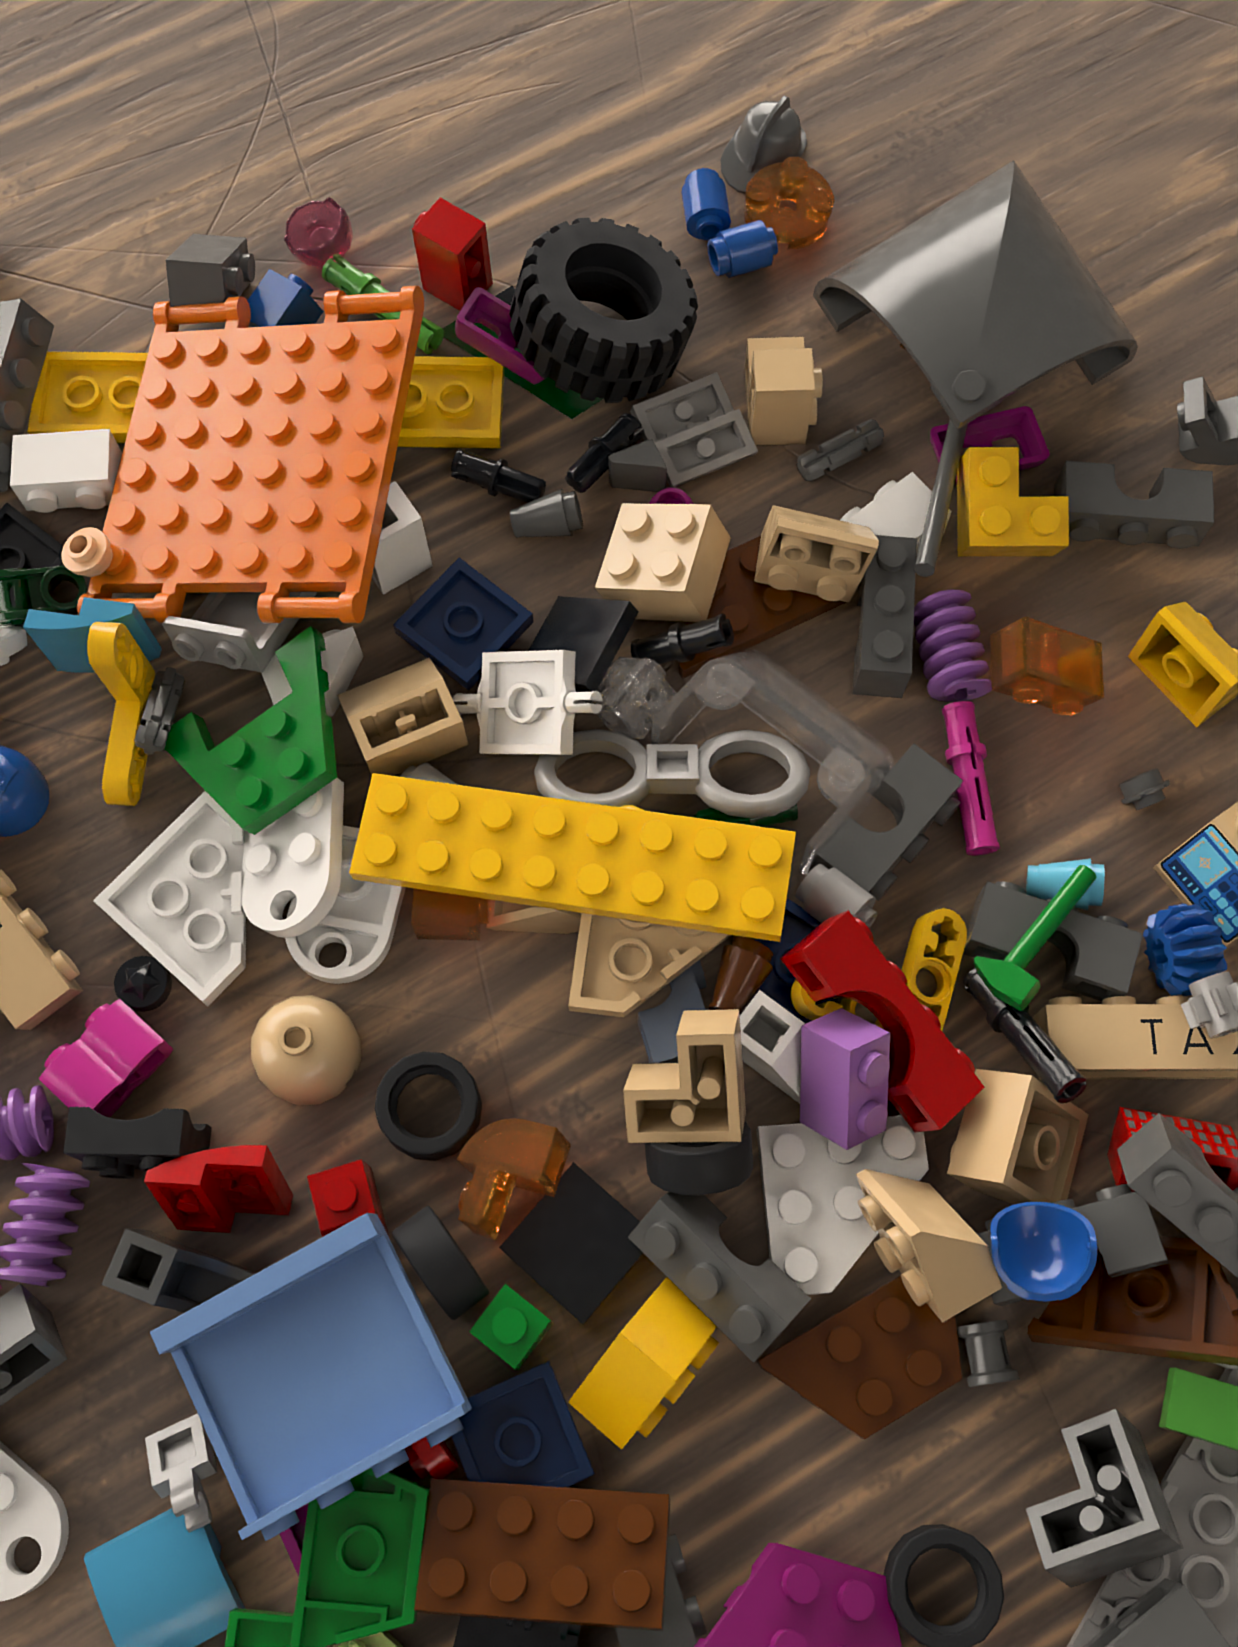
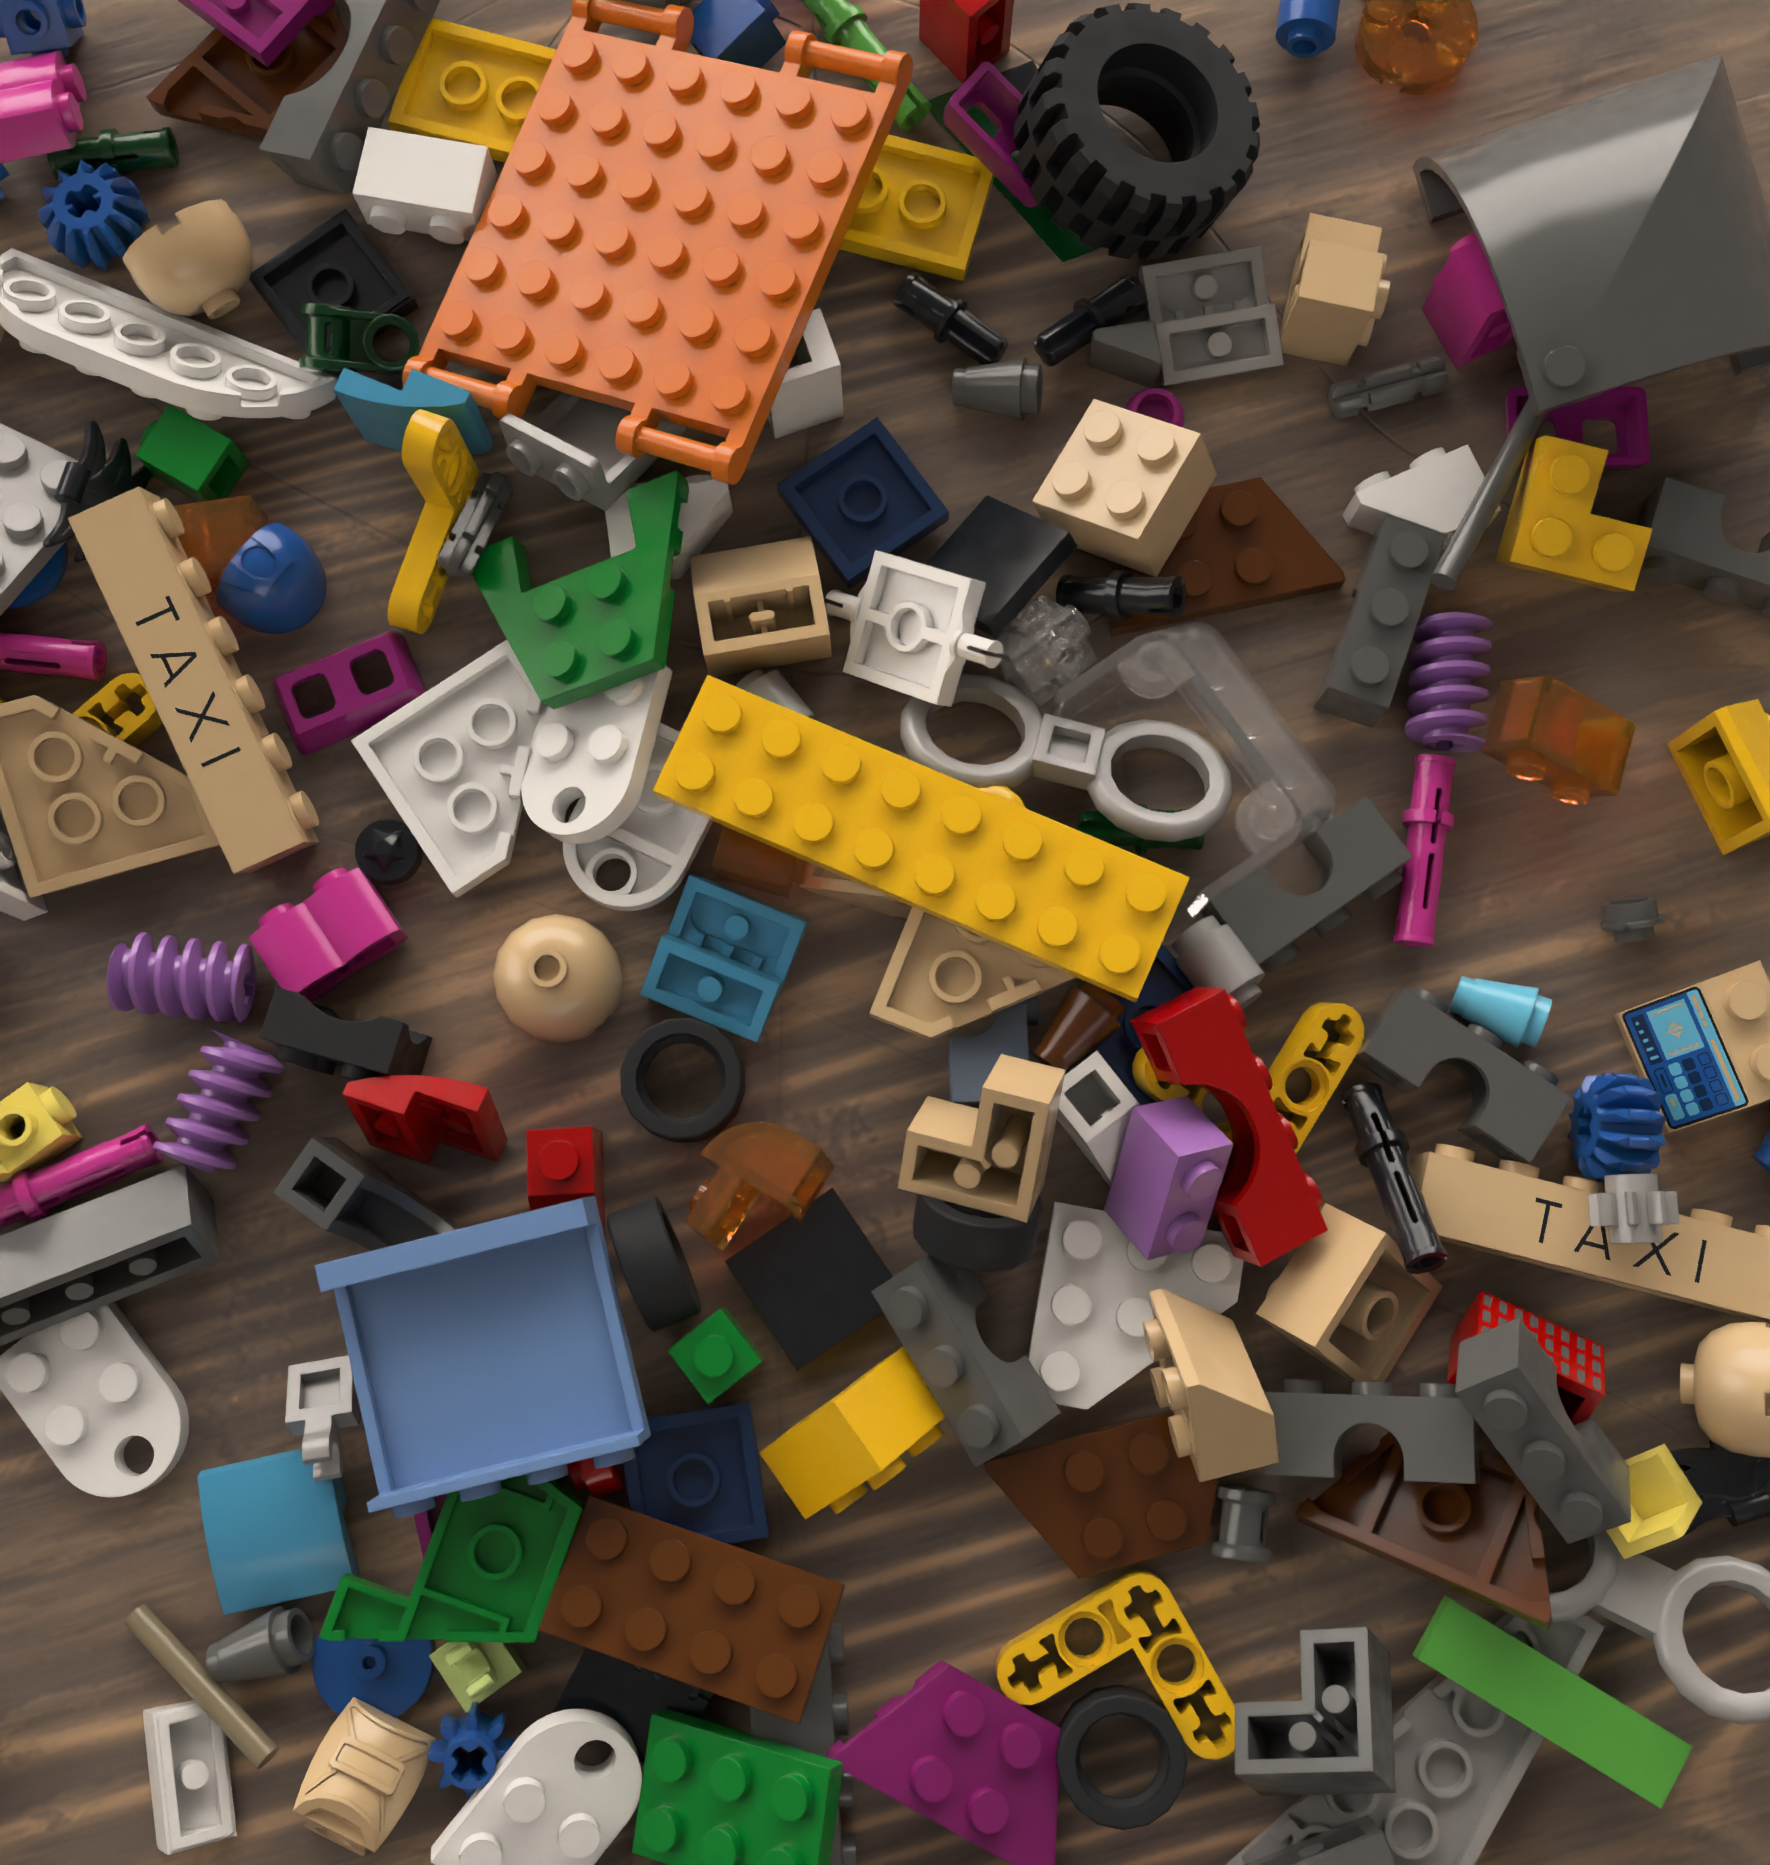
camera: 15 degrees right, 10 degrees up
(87, 552) = (428, 306): light nougat plate -> none
(89, 876) = (352, 709): none -> magenta piece
(439, 999) = (724, 957): none -> dark azure slope
(742, 249) = (1339, 83): blue brick -> none
(814, 554) = (1313, 523): tan slope -> none
(885, 374) = (1467, 305): none -> dark pink brick
(912, 1480) = (1120, 1635): none -> yellow beam
(1008, 978) = (1393, 1109): green piece -> none
(1043, 1250) = (1336, 1435): blue helmet -> none

